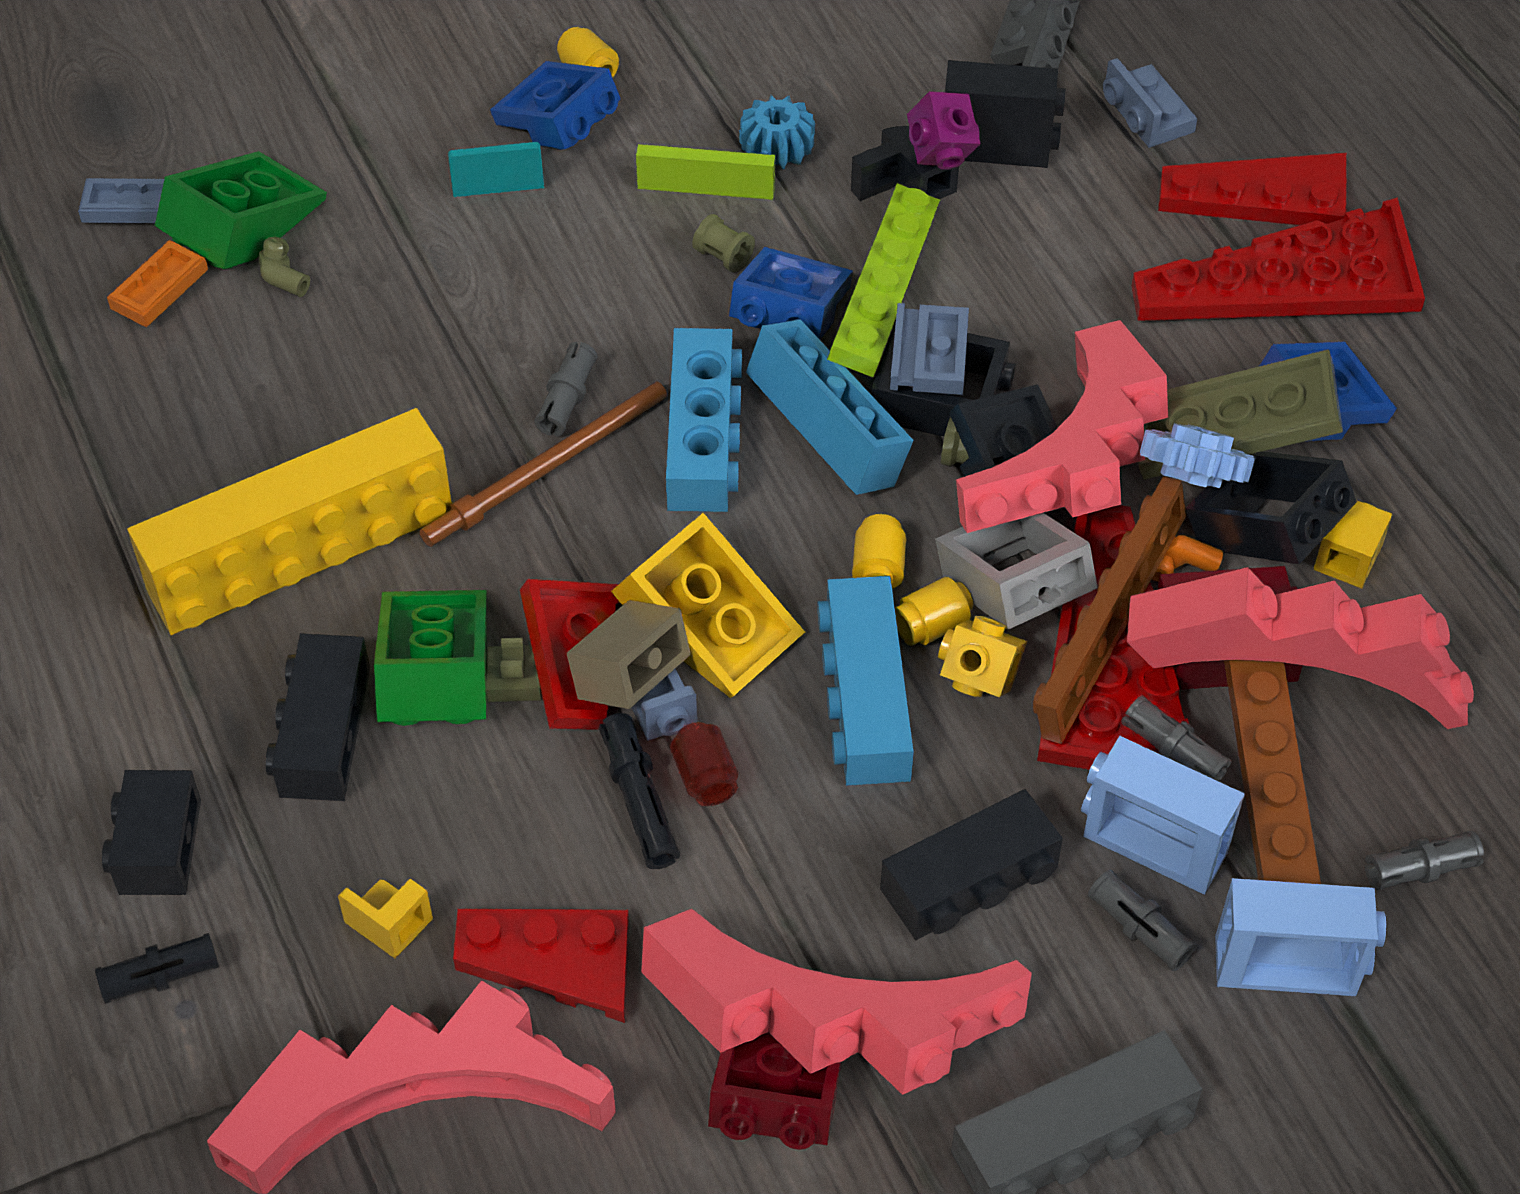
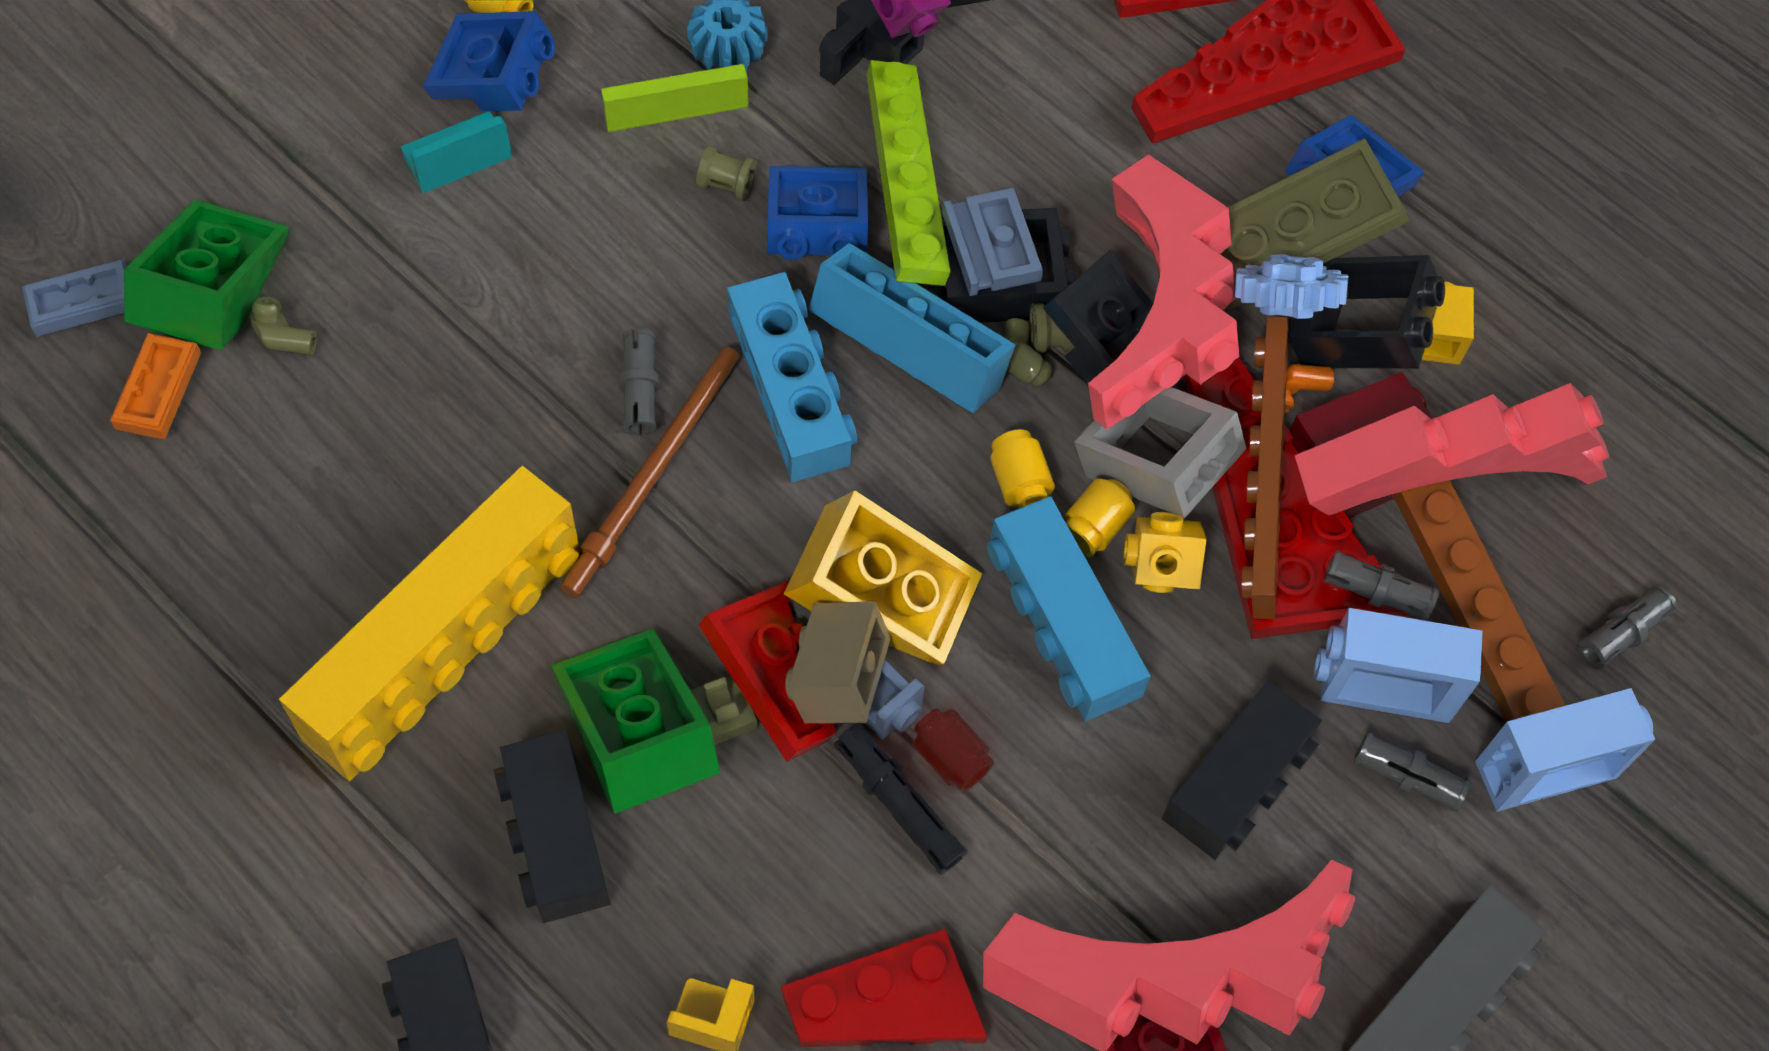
camera: 25 degrees left, 10 degrees up
(924, 461) = (1025, 362): none -> olive arm

